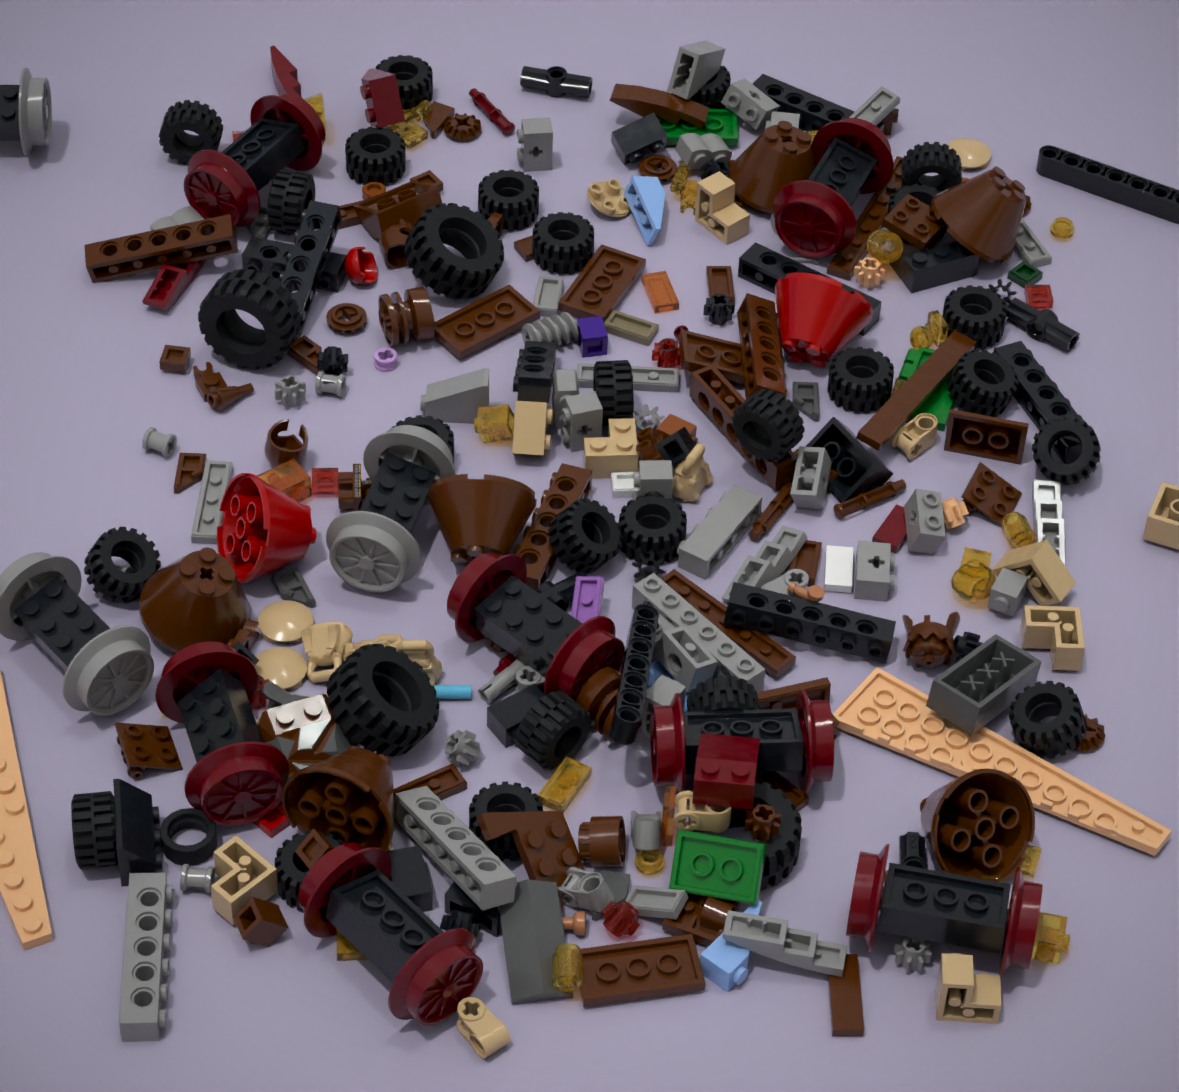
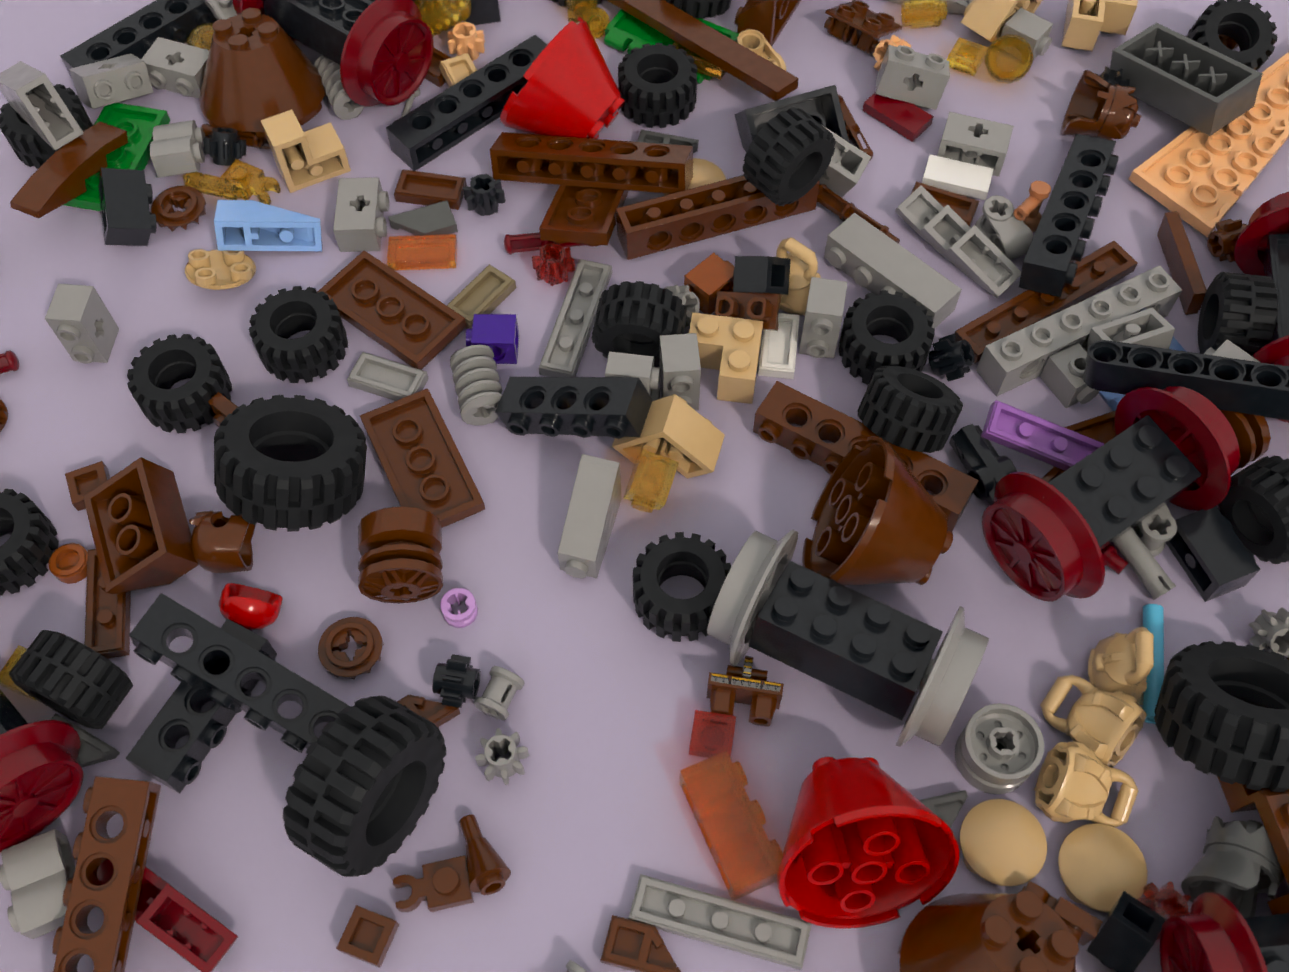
camera: 75 degrees left, 15 degrees up
(285, 448) = (645, 779): reddish brown helmet -> none
(344, 602) = (1018, 751): none -> light grey wheel
(524, 248) = (273, 384): reddish brown tile -> none
(678, 251) = (360, 214): none -> light grey brick
(689, 289) = (427, 220): none -> dark grey tile
(839, 272) = (457, 68): none -> tan tile

